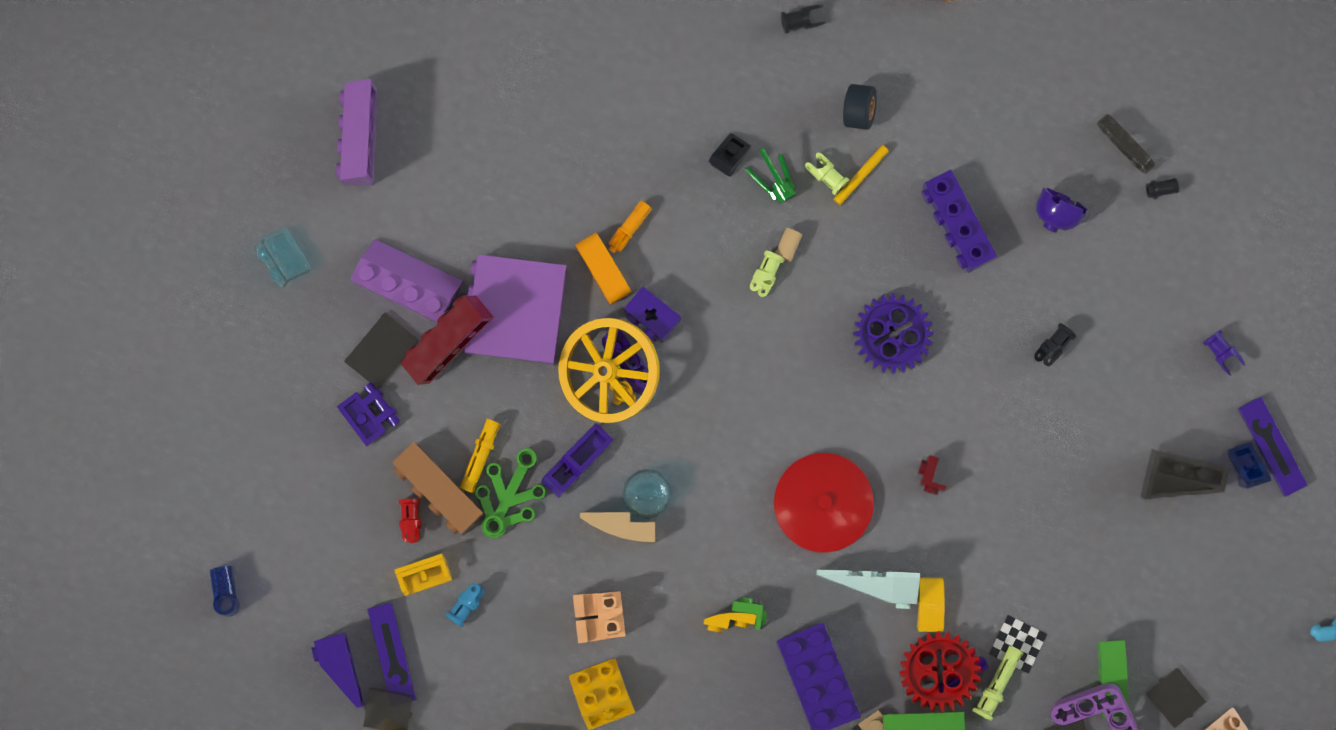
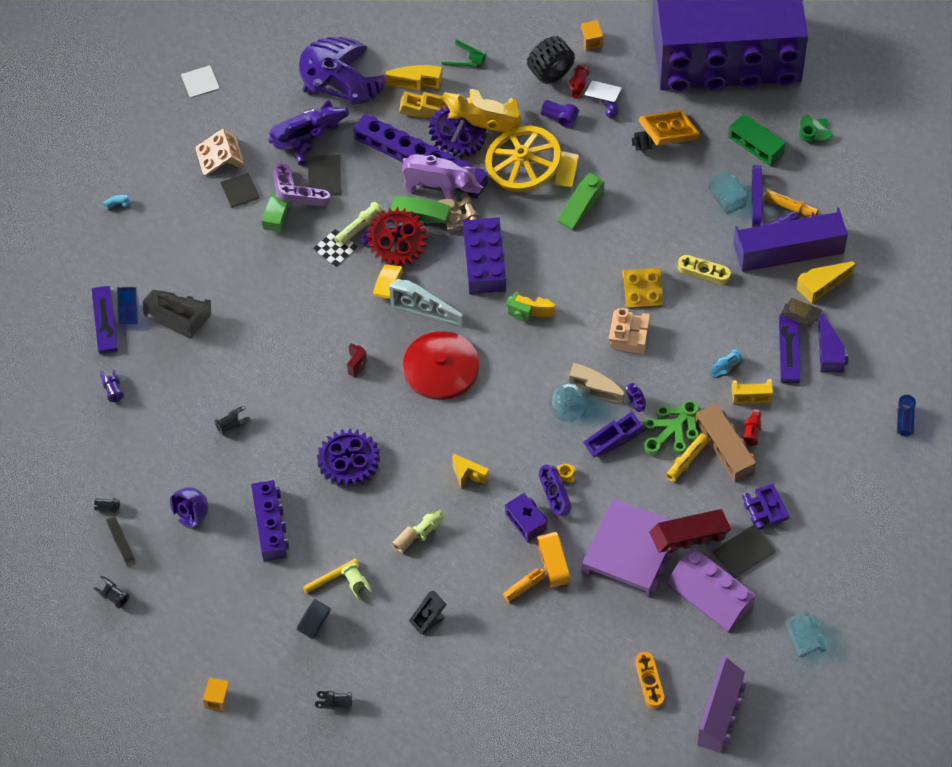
camera: 165 degrees left, 25 degrees down
(435, 137) = (642, 674): none -> light orange beam
(563, 517) = (636, 397): none -> dark purple gear
(613, 370) = (572, 482): yellow wheel -> none
(748, 359) = (466, 468): none -> yellow slope
(782, 188) = (396, 580): green plant -> none
(1111, 76) = (113, 593): none -> black piece

